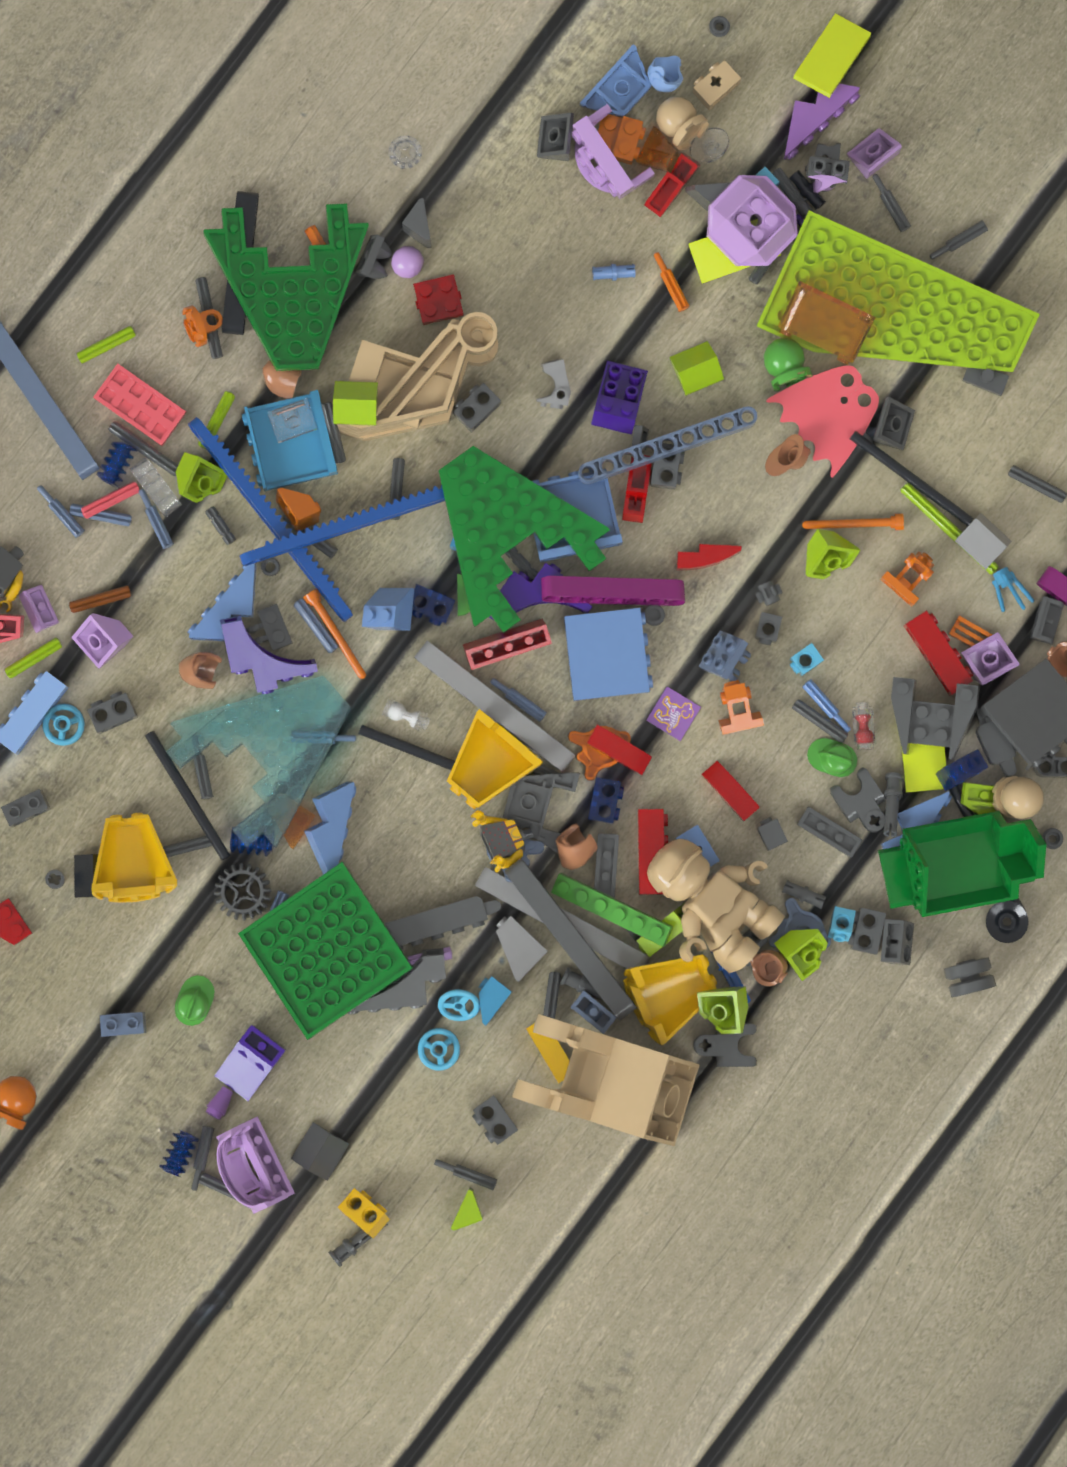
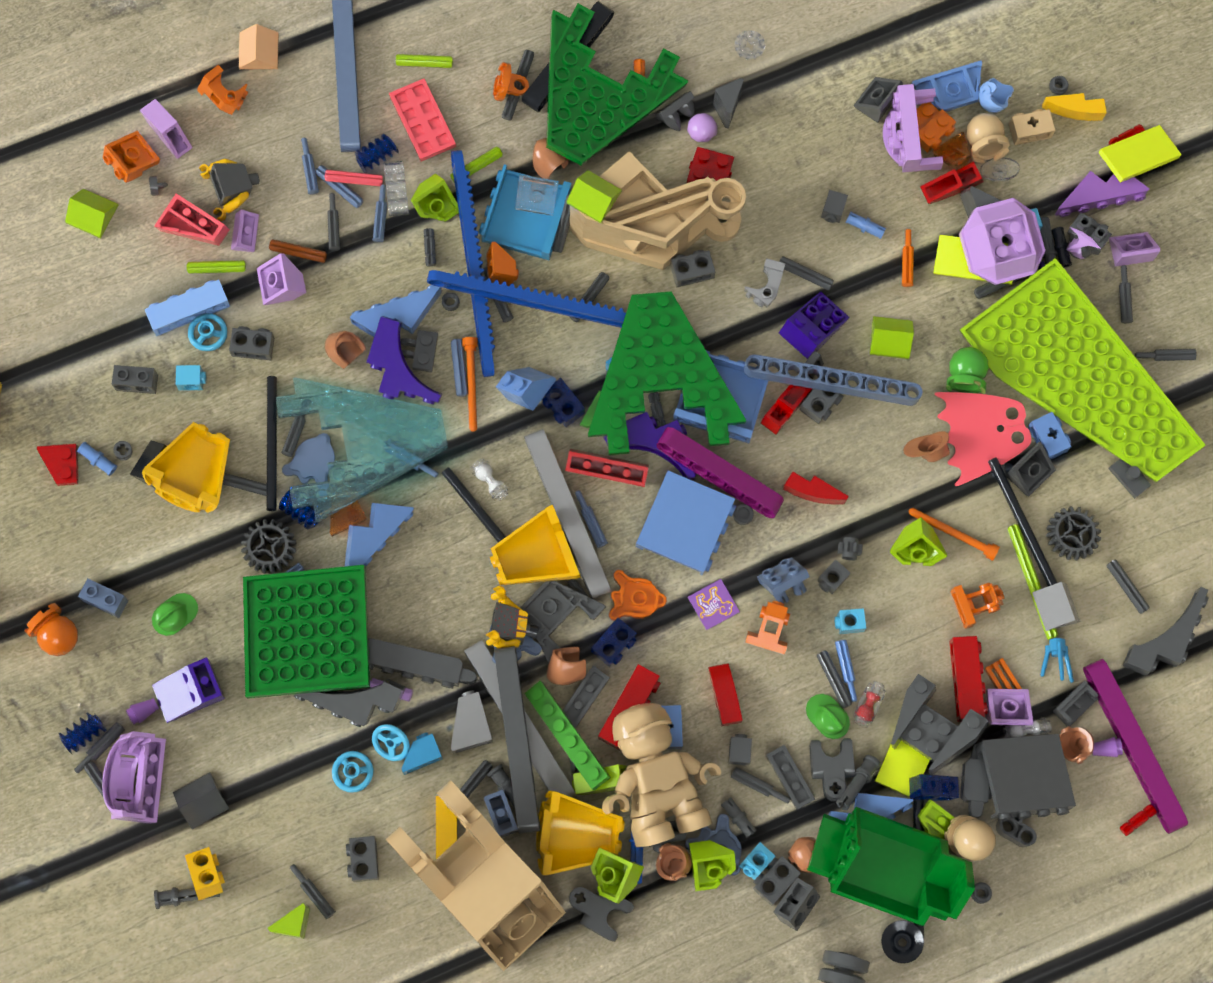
camera: 25 degrees right, 10 degrees down
(36, 900) = (97, 458): none -> medium blue pin
(75, 777) = (190, 377): none -> medium azure brick
(100, 1080) = (54, 633): none -> orange tile
(117, 555) = (333, 225): none -> dark grey axle
(143, 448) = (404, 153): dark grey axle -> none
(233, 790) = (311, 460): none -> sand blue tile
(575, 271) = (834, 206): none -> dark grey brick
(583, 351) = (807, 273): none -> dark grey axle
(619, 749) = (650, 605): red slope -> none
(748, 40) = (1076, 107): none -> yellow slope
(804, 855) = (757, 784): none -> dark grey axle
(810, 41) = (1137, 129): none -> red axle
(826, 322) = (1022, 353): clear orange windscreen -> none
(876, 894) = (801, 853): none -> nougat cap
(882, 377) = (1050, 425): none -> medium blue brick
(973, 448) = (1076, 541): none -> dark grey gear
(1026, 660) = (1039, 727): none -> clear piece

